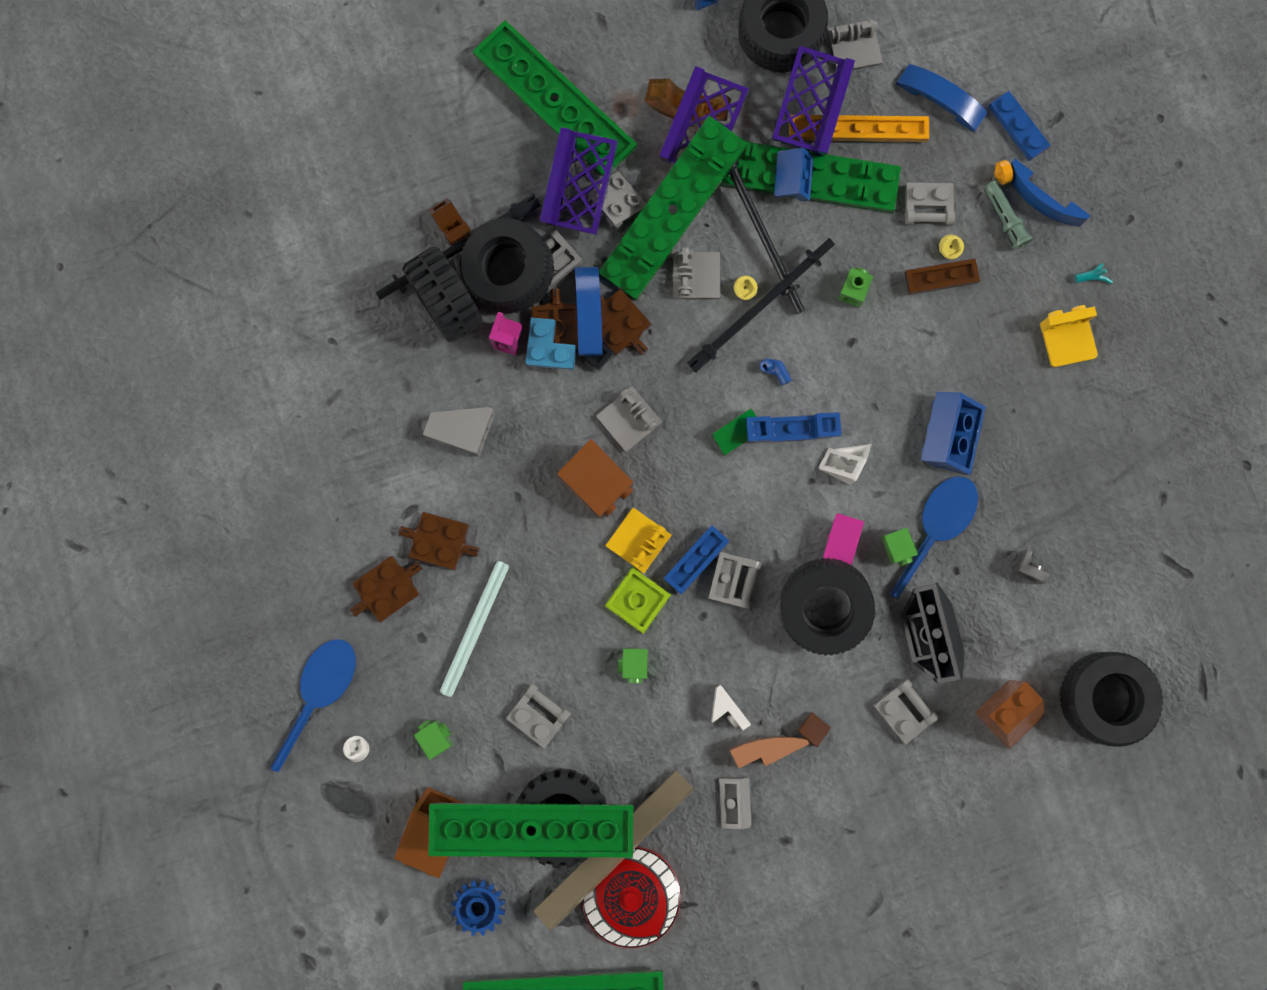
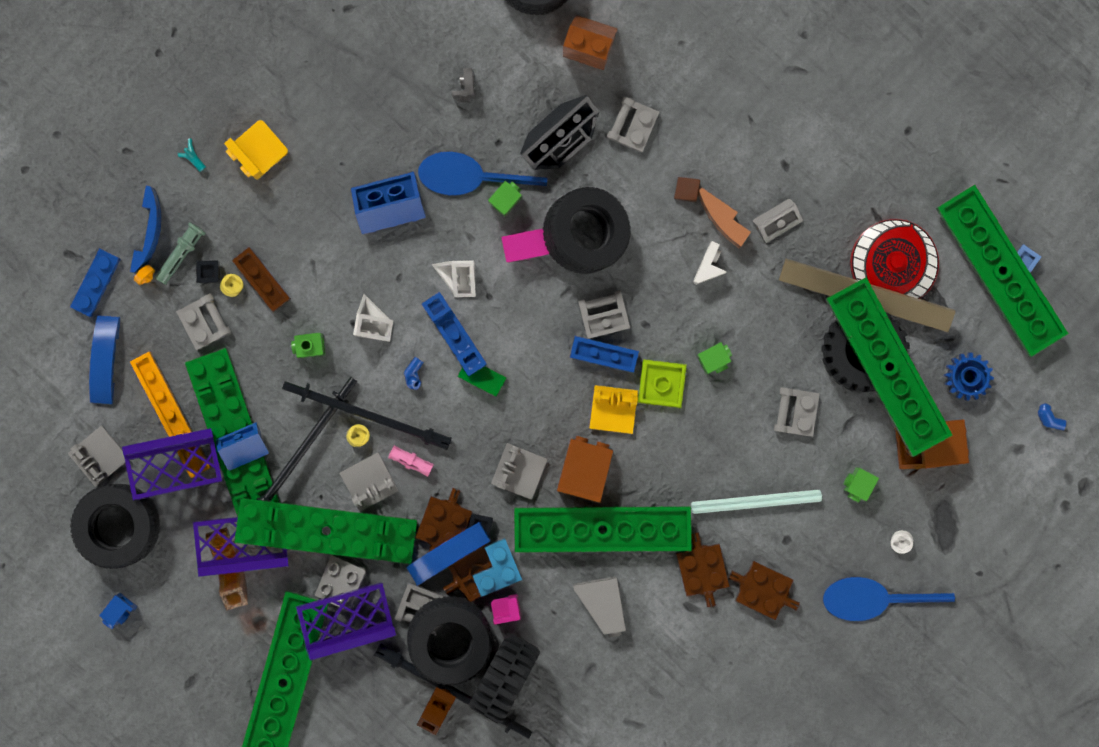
camera: 120 degrees left, 5 degrees up
(392, 964) = (1048, 419): none -> blue arm
(518, 489) = (627, 529): none -> green piece
(694, 323) = (411, 461): none -> bright pink pin
(847, 356) = (372, 322): none -> white slope
(975, 231) = (208, 271): none -> black plate

